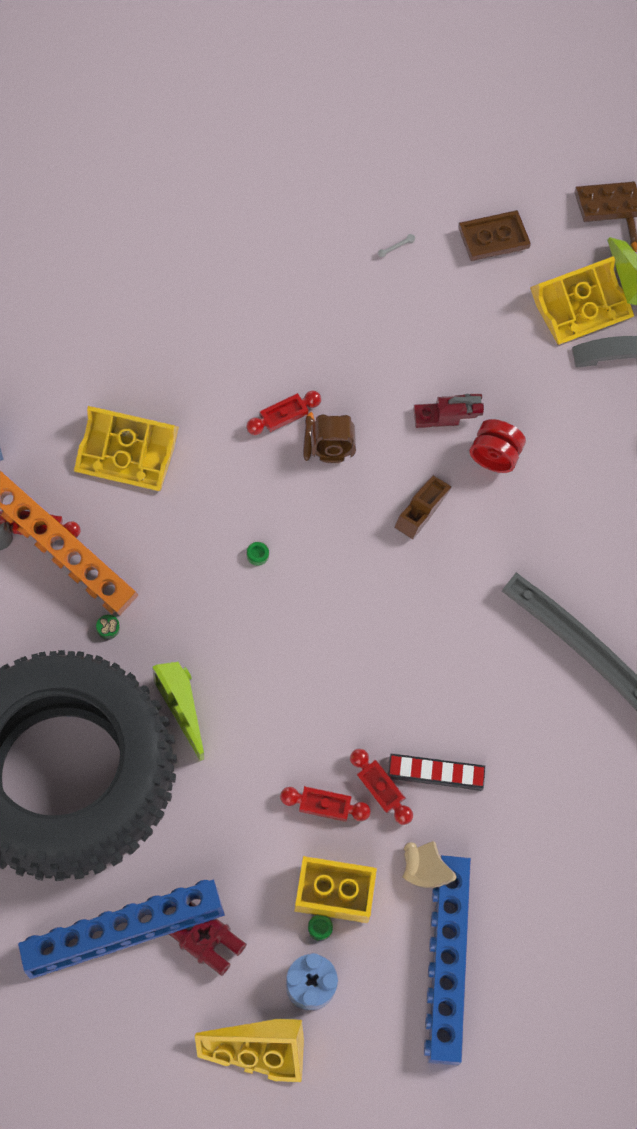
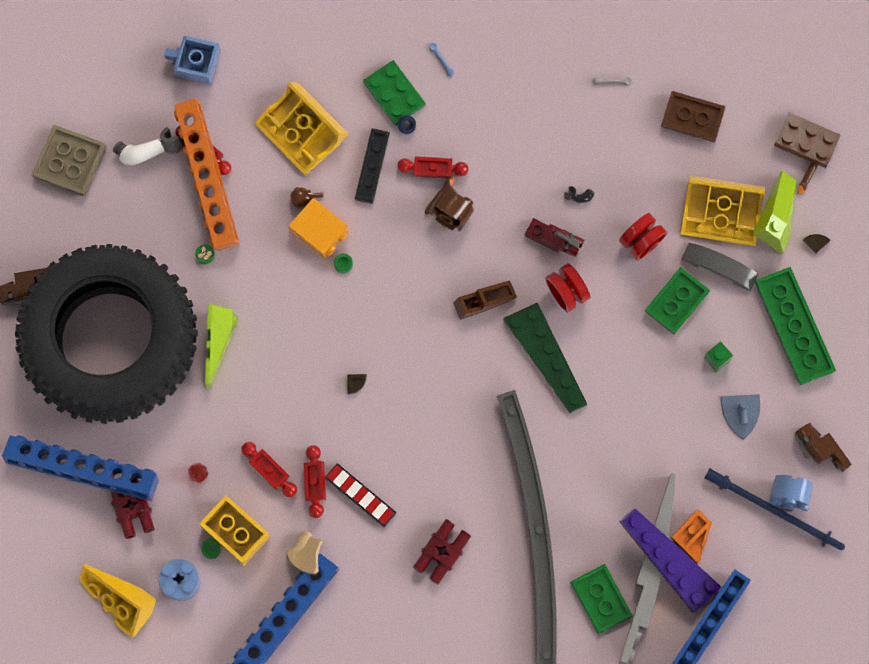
camera: 40 degrees right, 10 degrees up
(172, 512) = (301, 196): none -> reddish brown piece
(196, 366) = (394, 92): none -> green plate
(205, 306) = (433, 47): none -> medium blue hinge
(211, 533) = (319, 228): none -> light orange brick
(222, 445) = (372, 166): none -> black tile
(233, 383) = (412, 124): none -> dark blue plate
(252, 854) = (198, 472): none -> clear red plate
(351, 662) = (355, 382): none -> dark brown tile
(447, 361) = (582, 198): none -> black arm
(502, 516) = (540, 344): none -> dark green wing
(535, 361) = (643, 236): none -> red wheel
(550, 783) = (445, 562): none -> dark red pin
(602, 403) = (677, 300): none -> green plate

